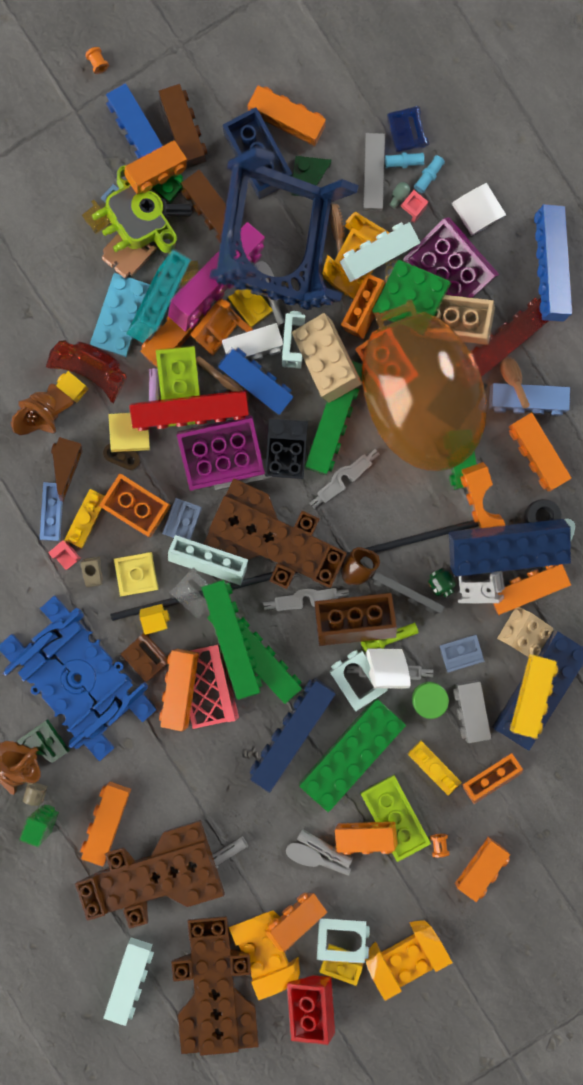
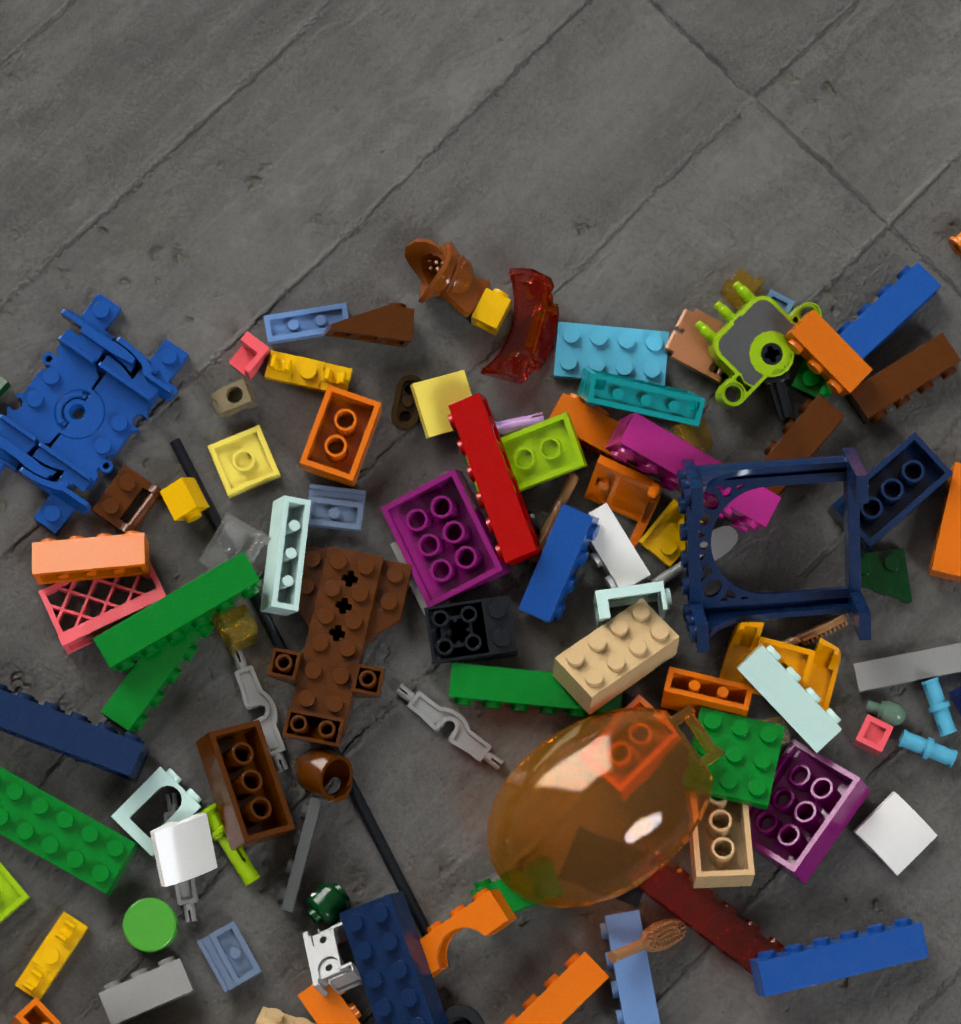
camera: 80 degrees right, 10 degrees down
(249, 602) = (238, 629): none -> clear yellow brick

